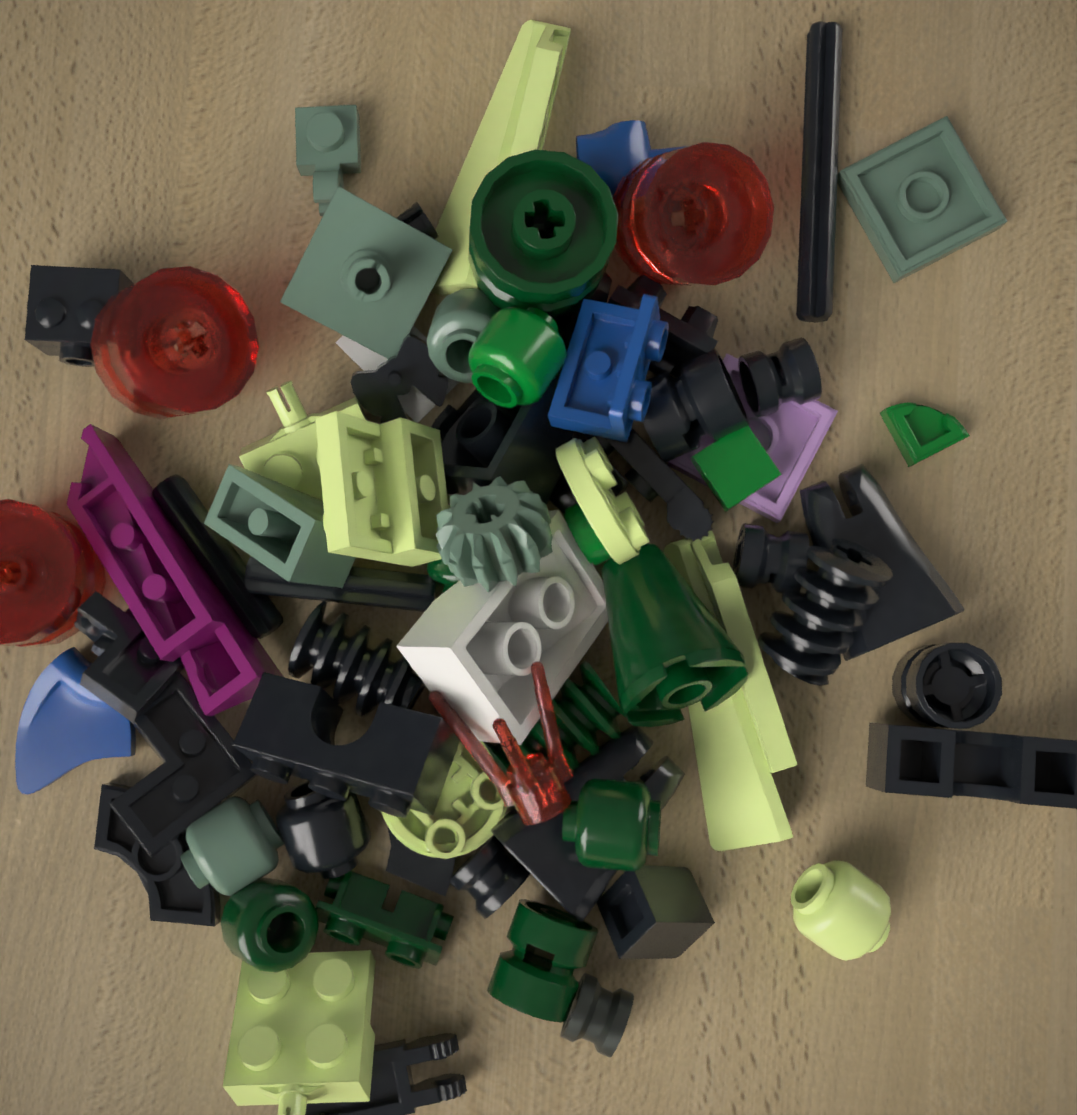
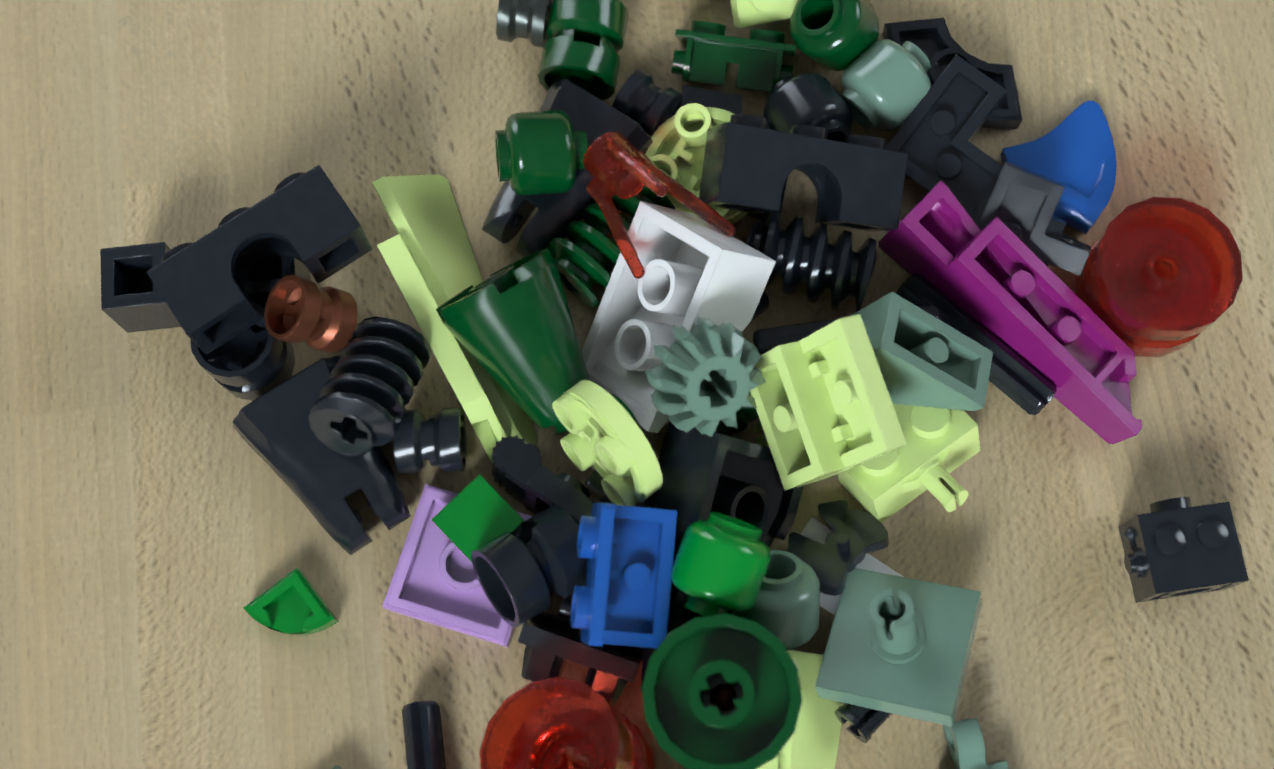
camera: 170 degrees right, 10 degrees down
(171, 307) = (1113, 528): clear red wheel -> none
(654, 912) = (484, 104): black panel -> none
(780, 377) = (433, 624): black wheel -> none
(841, 909) = (319, 133): yellowish green head -> none
(865, 689) = (302, 311): none -> copper wheel
(980, 734) = (210, 277): none -> black arch

